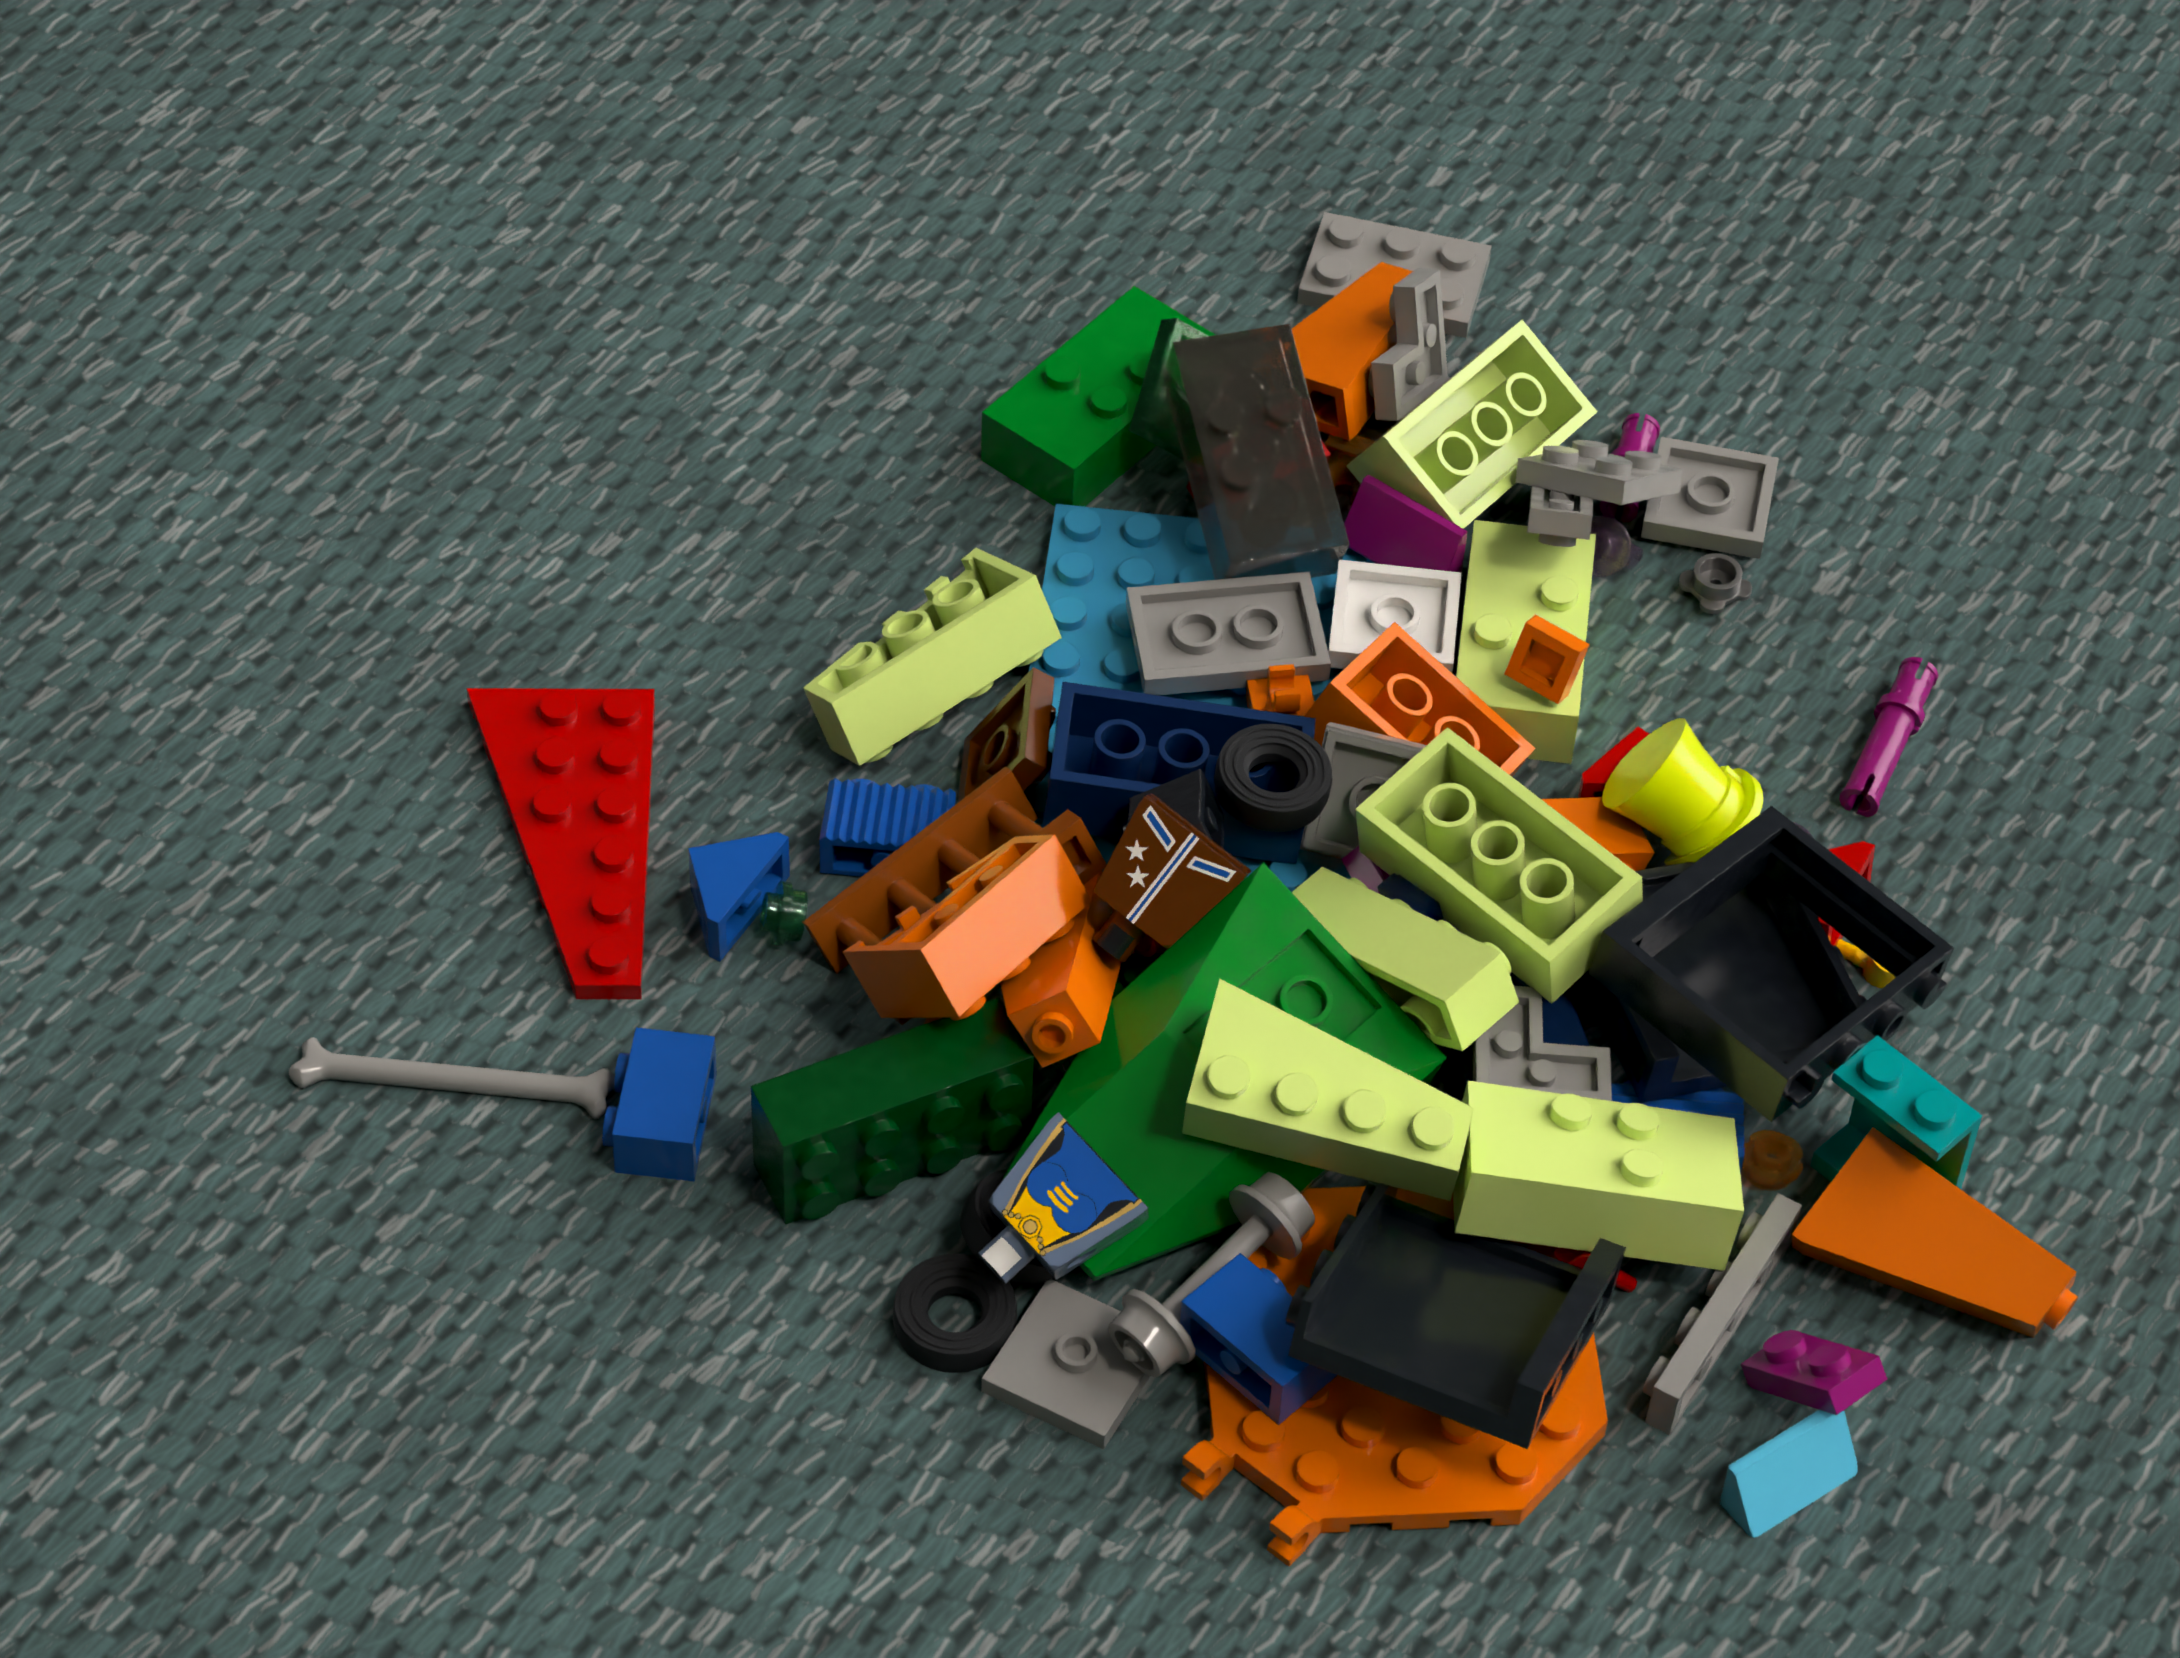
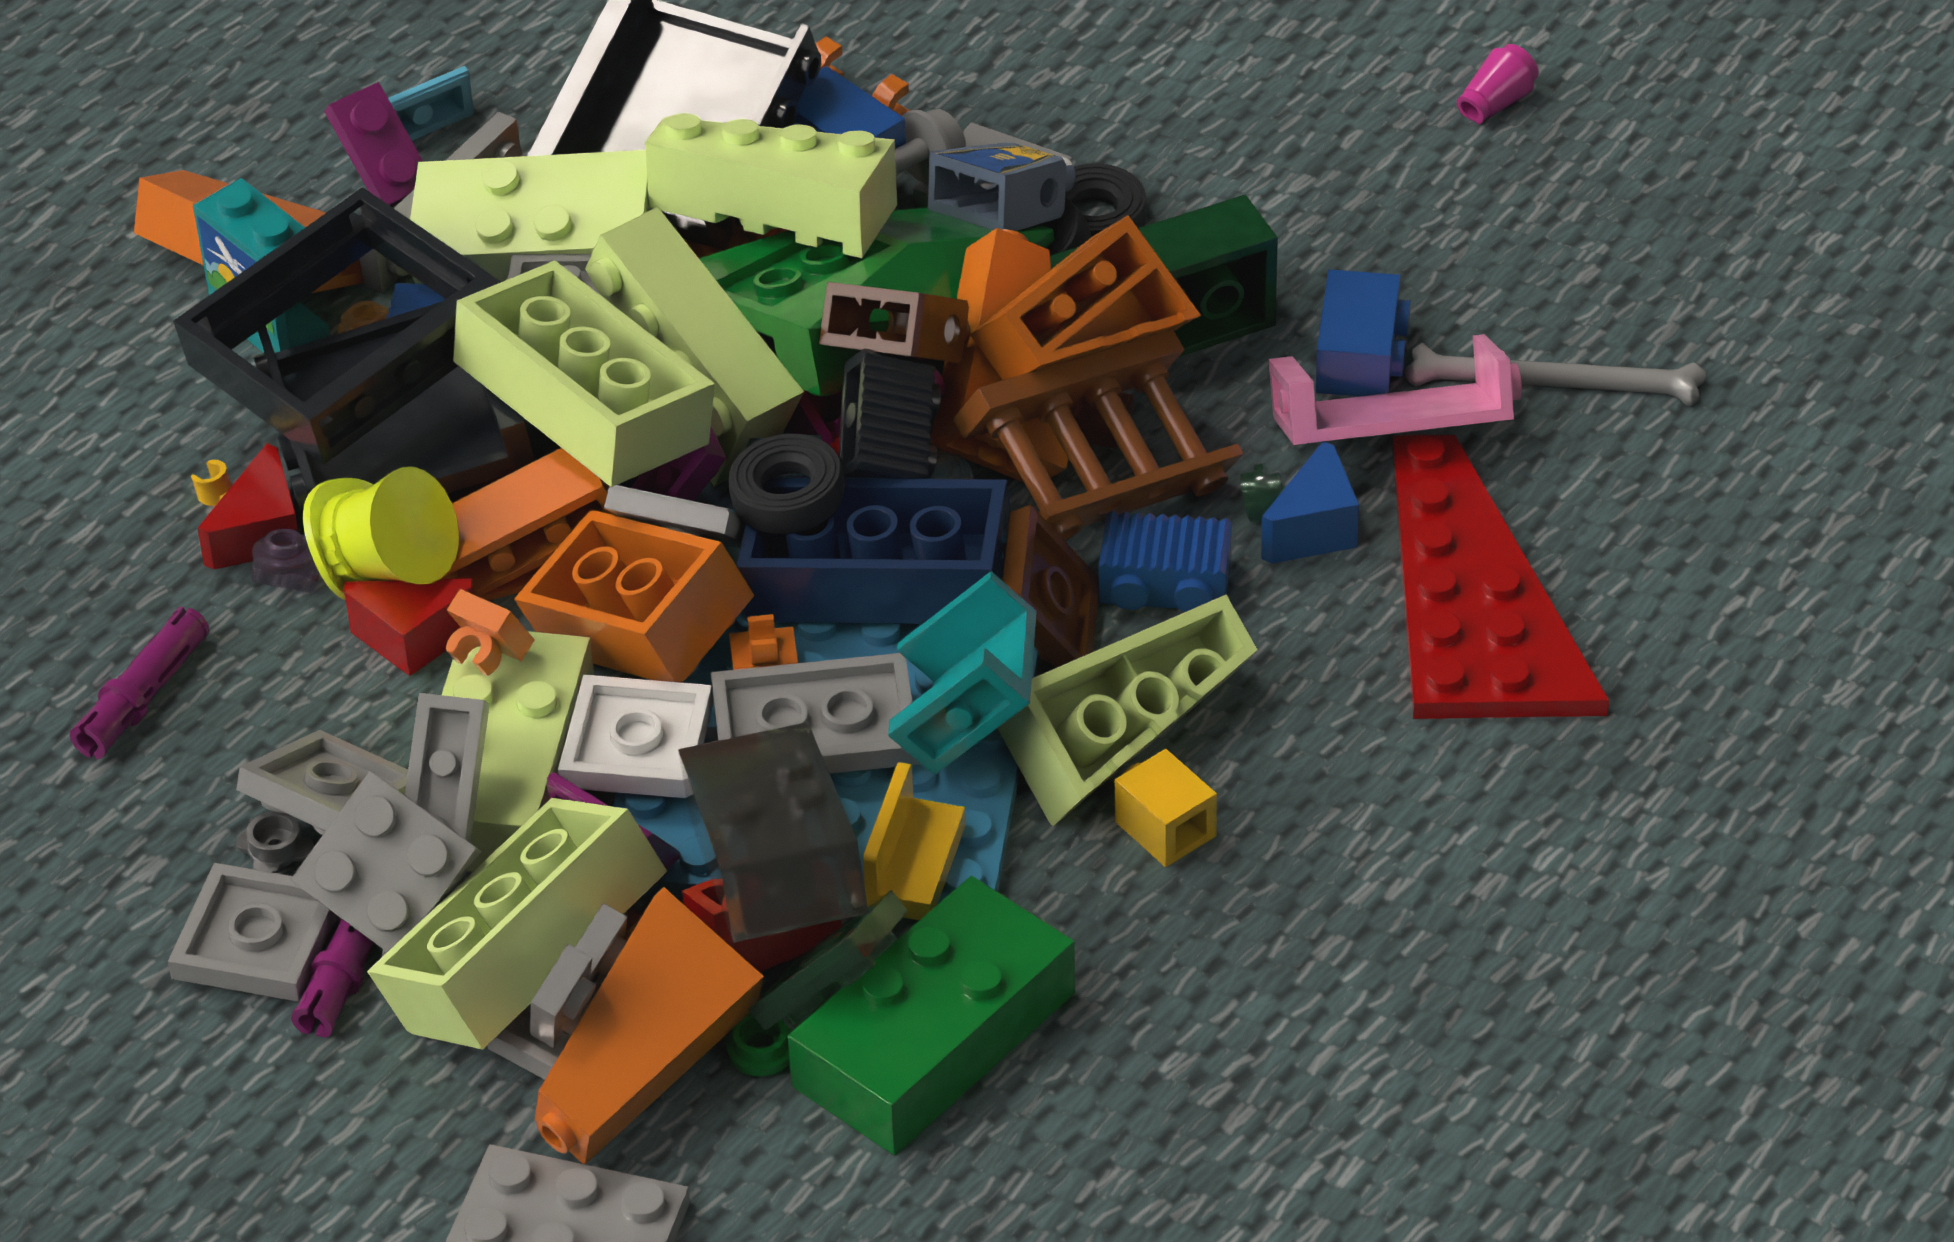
camera: 175 degrees left, 5 degrees down
(452, 1483) = (1498, 83): none -> dark pink cone
(594, 989) = (1371, 415): none -> bright pink panel
(891, 575) = (1165, 807): none -> yellow brick
(1072, 598) = (980, 671): none -> teal panel
(1127, 514) = (911, 846): none -> yellow panel
(1675, 606) = (314, 777): none -> light grey plate

